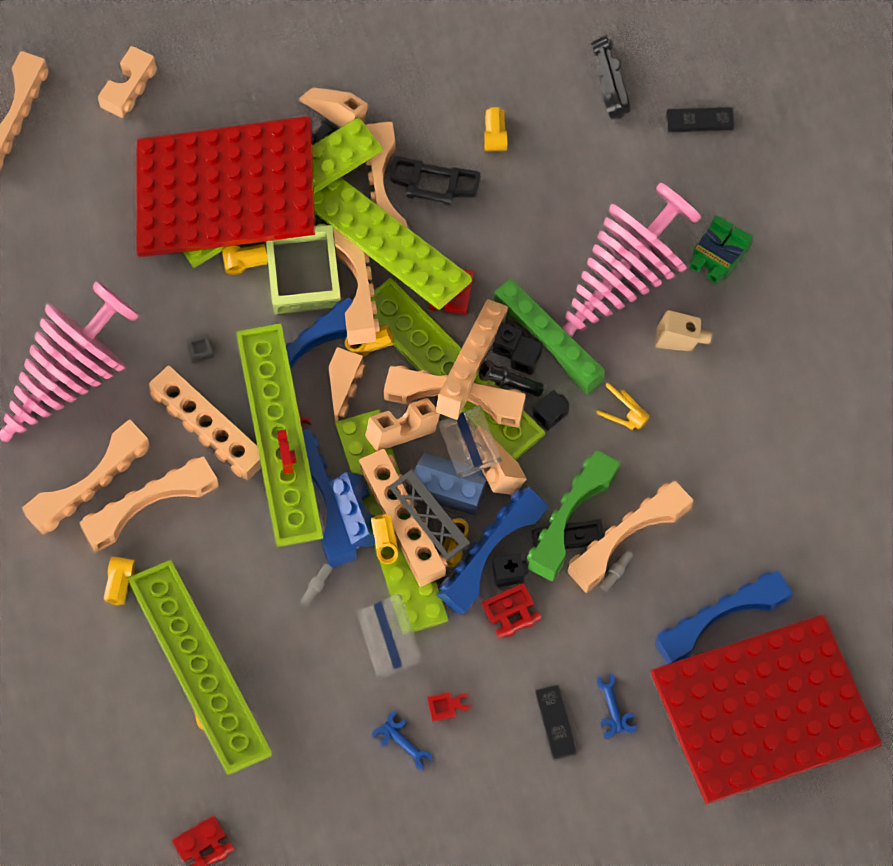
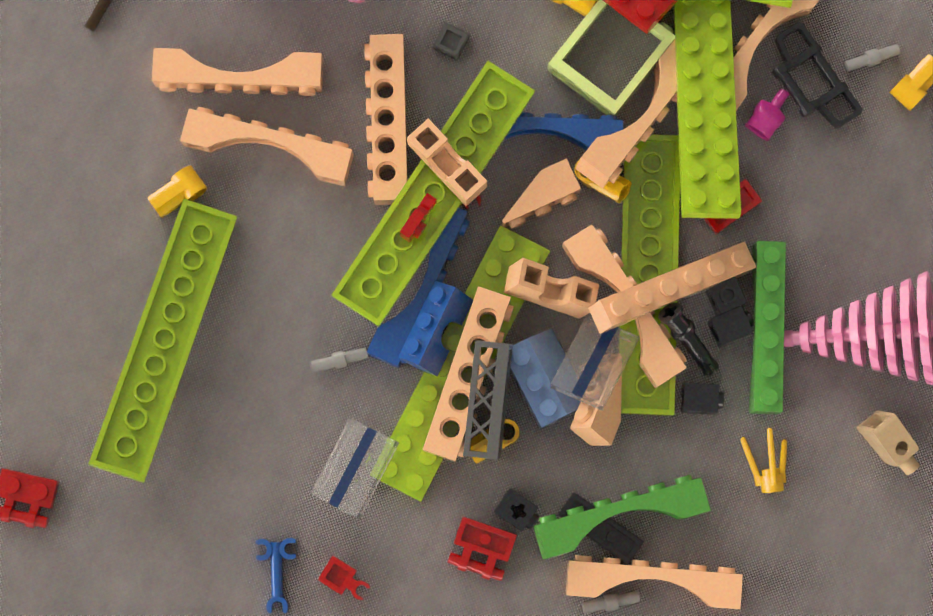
camera: 45 degrees right, 15 degrees up
(254, 404) = (442, 159): none -> light nougat arch
(384, 536) = (429, 381): yellow piece -> none
(429, 224) = (767, 116): none -> dark pink piece
(455, 141) = (872, 57): none -> light grey bar
(464, 585) = (577, 469): blue arch -> none

